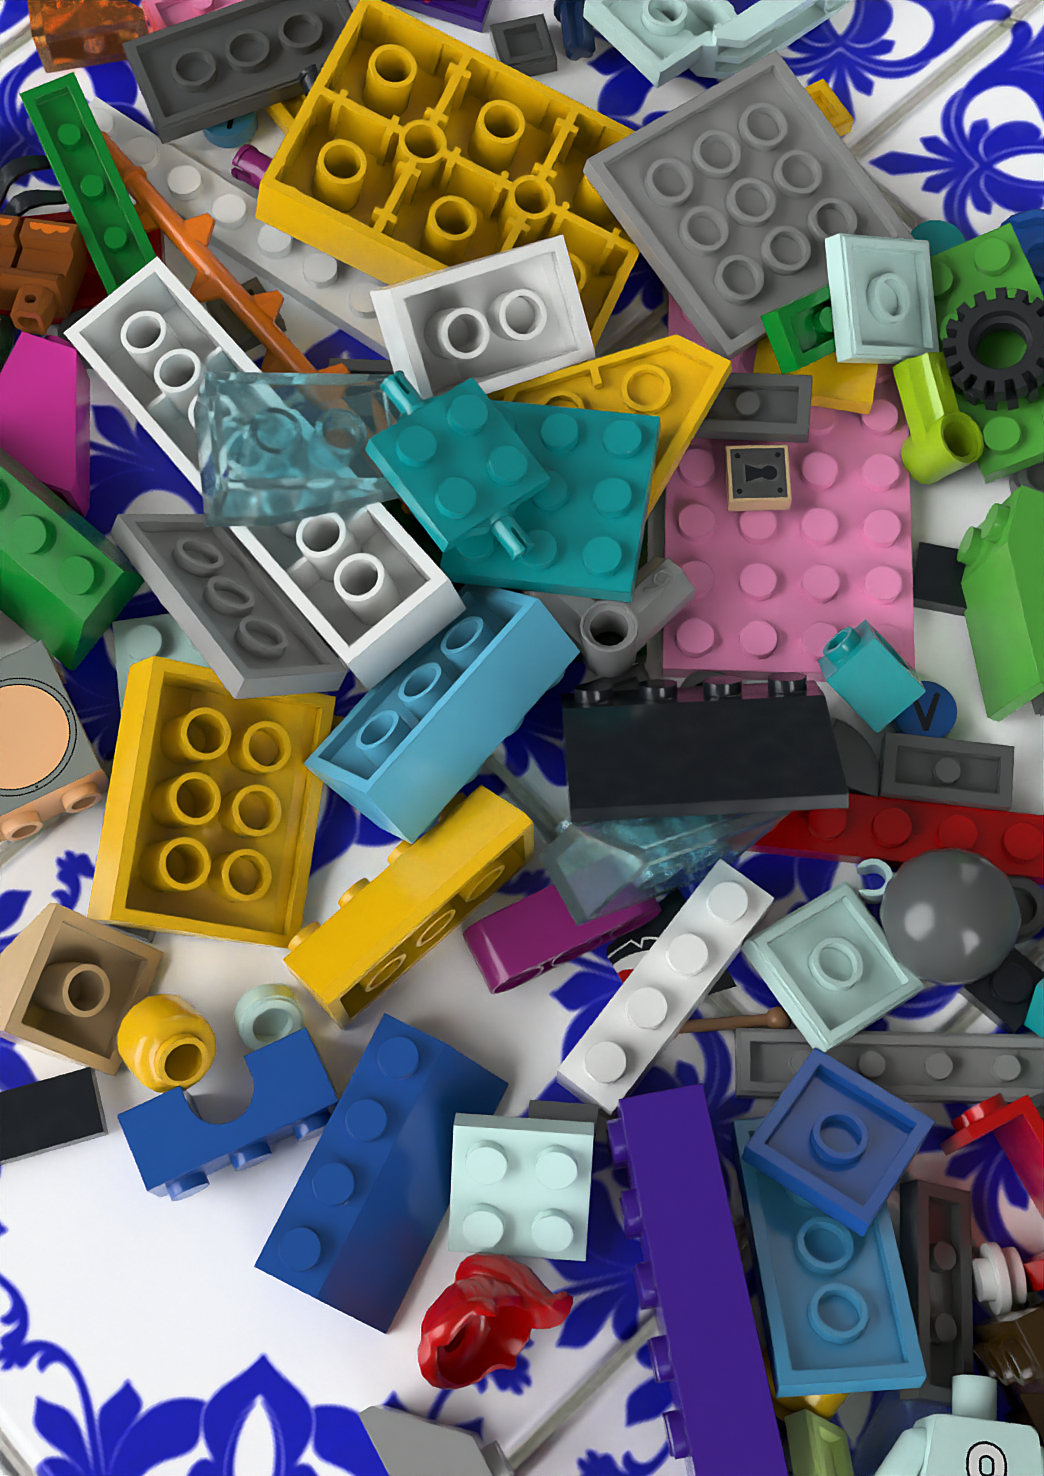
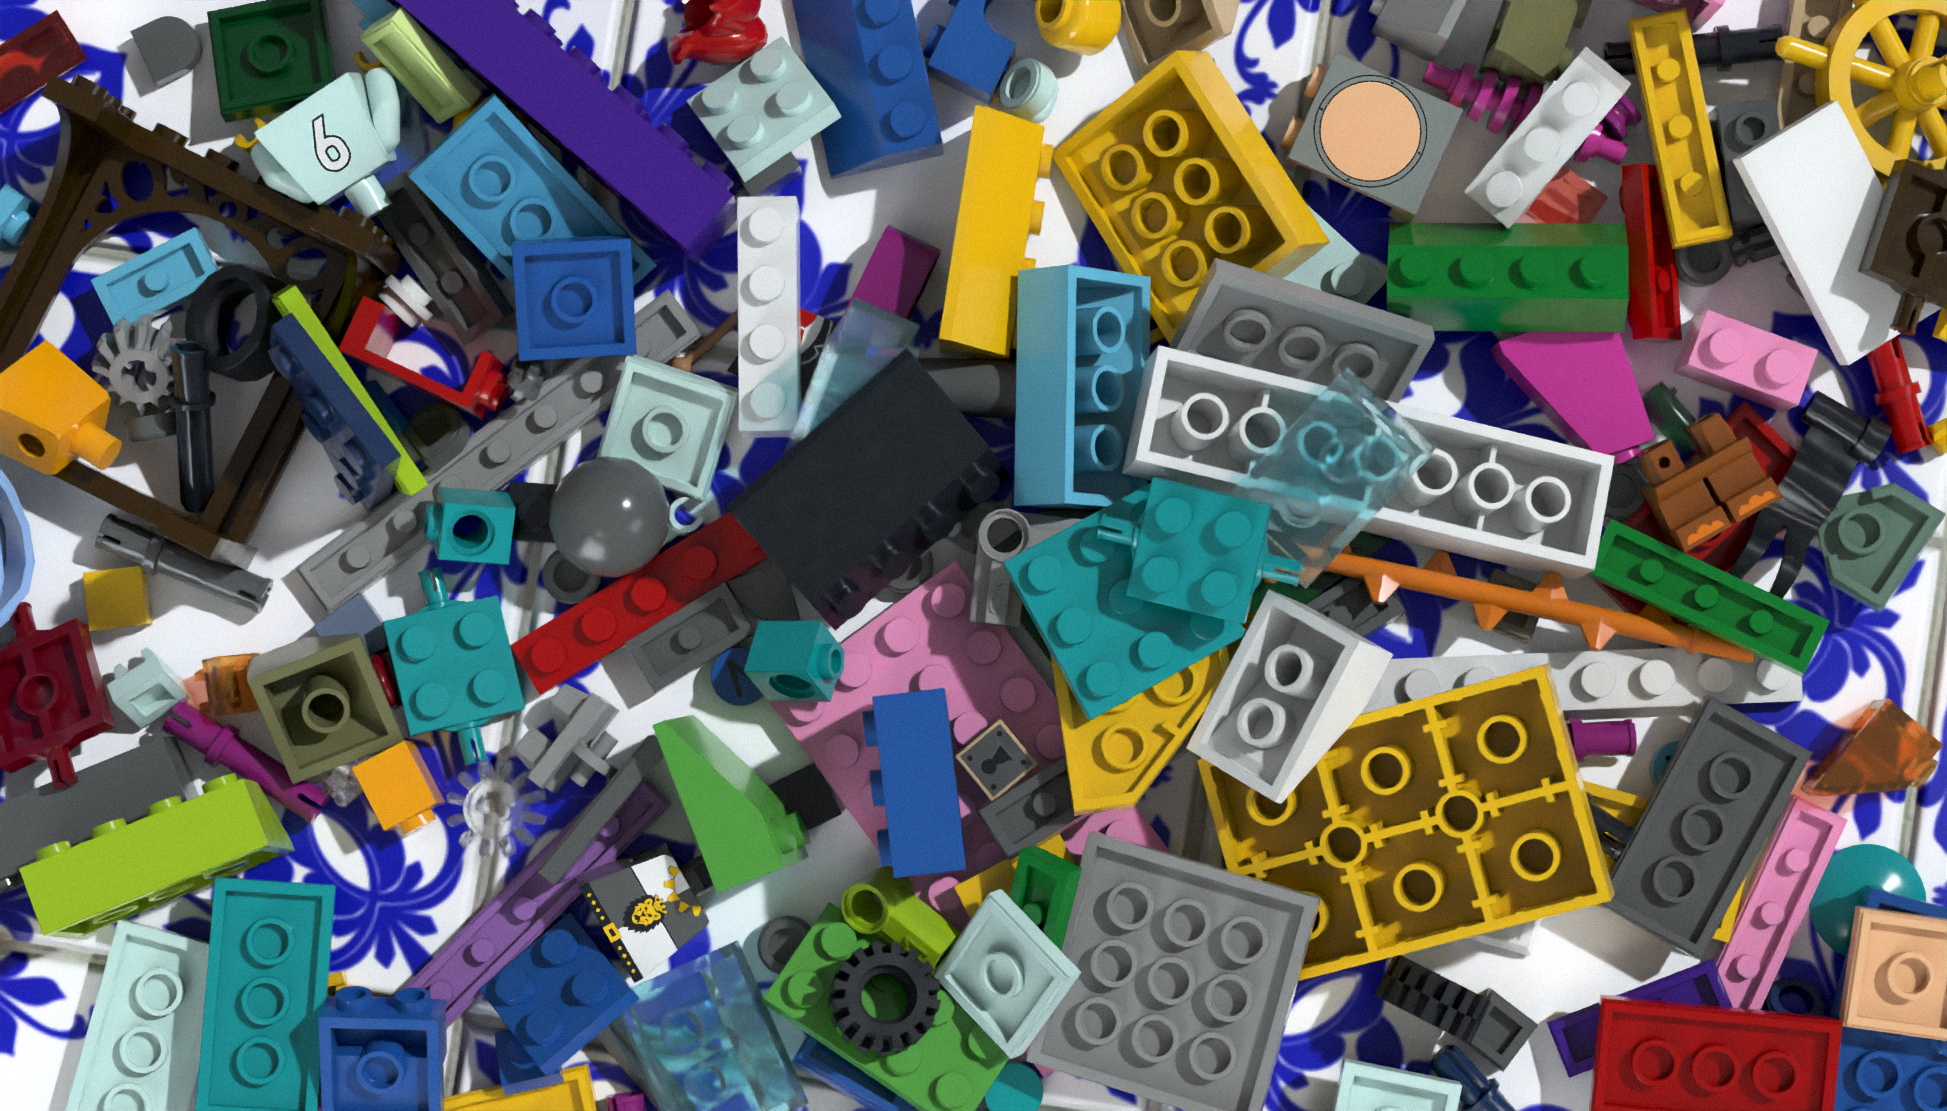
camera: 140 degrees right, 15 degrees up
(530, 787) = (976, 385): none -> dark grey pin
(554, 59) = (1433, 998): none -> black tyre
(845, 484) = (915, 783): none -> blue brick
(940, 1103) = (525, 379): none -> dark grey piece

